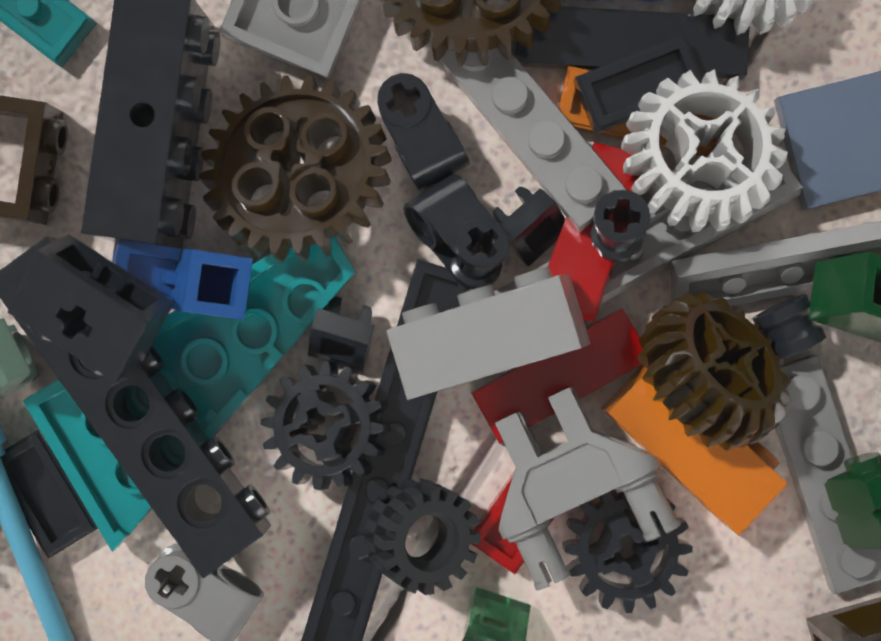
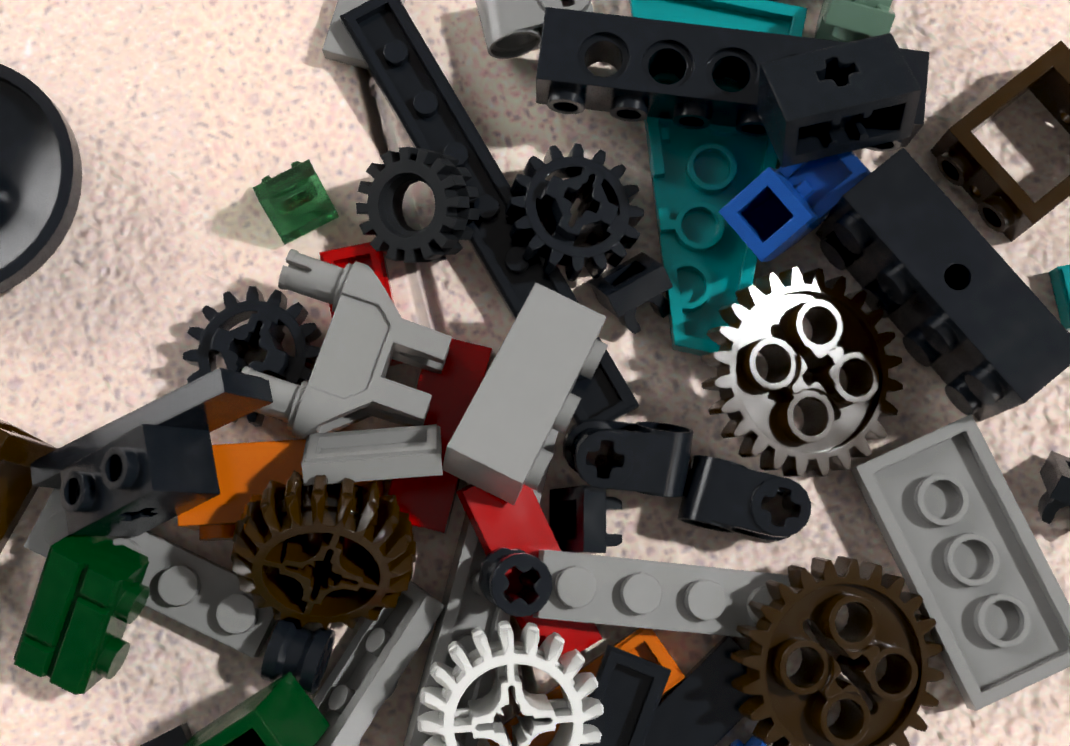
camera: 130 degrees right, 10 degrees down
(625, 396) = (373, 454): none -> light grey tile
(746, 559) = (201, 404): none -> tile
(787, 535) = (139, 481): none -> black brick

